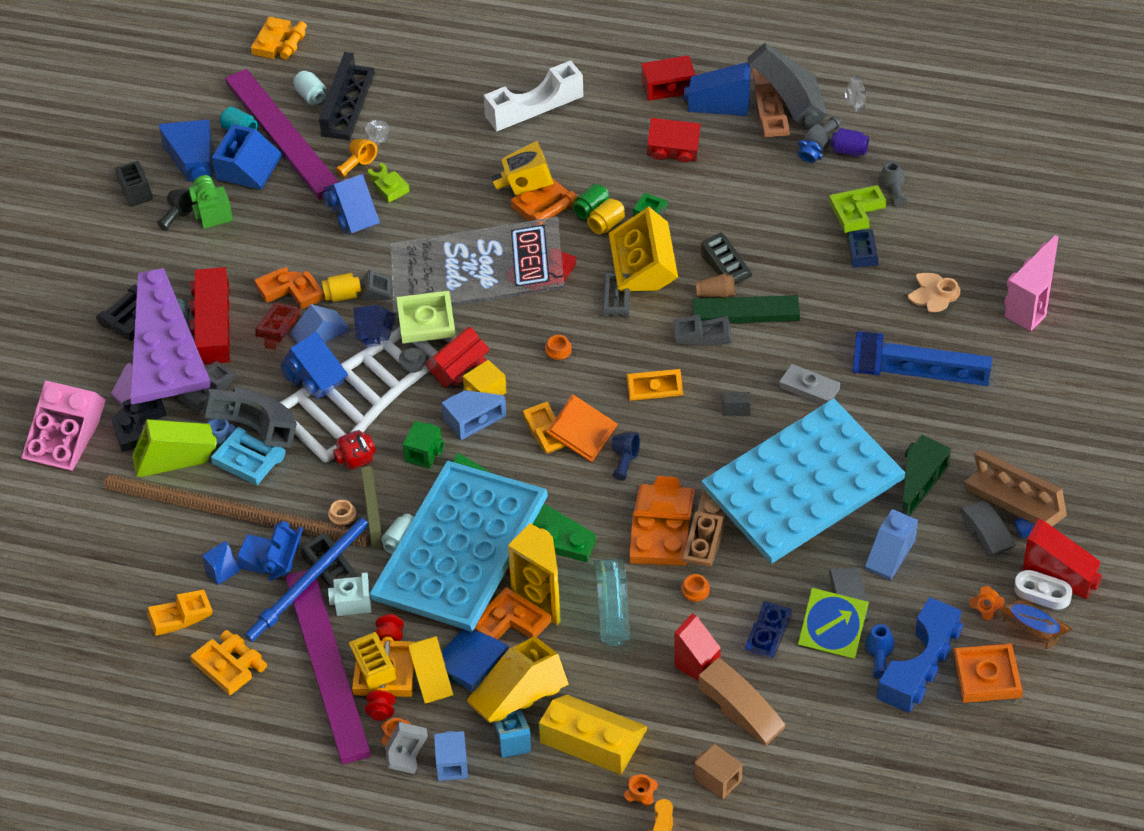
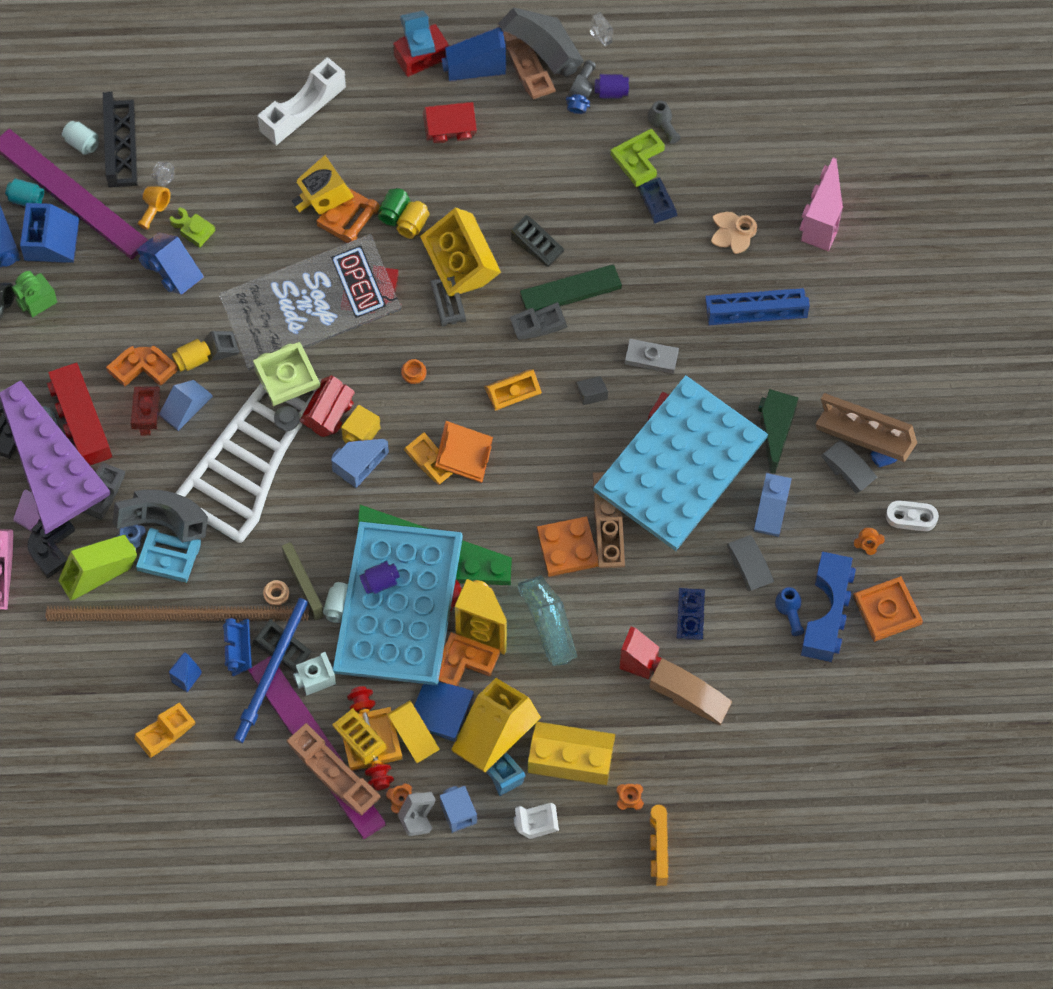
camera: 20 degrees left, 15 degrees up
(222, 667) = (225, 775): light orange plate -> none
(253, 553) = (213, 655): blue slope -> none
(272, 38) = (19, 85): light orange plate -> none
(314, 366) = (200, 449): blue brick -> none
(331, 684) = (332, 771): none -> nougat slope
(354, 450) = (266, 526): red head -> none
(373, 324) = (239, 392): clear blue slope -> none
(423, 444) = (326, 504): green brick -> none
(446, 512) = (379, 577): none -> dark purple brick
(529, 788) = (536, 820): none -> white bracket
(628, 447) = (510, 460): dark blue bar -> none
(657, 204) = (448, 199): green plate -> none
(664, 499) = (561, 508): orange piece -> none
(667, 58) = (417, 33): none -> dark azure slope
(695, 588) = (615, 589): orange plate -> none
(716, 287) = (539, 272): medium nougat cone -> none
(718, 771) = (690, 762): medium nougat brick -> none
(833, 623) = (746, 595): piece -> none
(868, 352) = (693, 307): clear blue slope -> none
(1035, 621) = (914, 549): piece -> none
(1061, 558) = (922, 485): red slope -> none

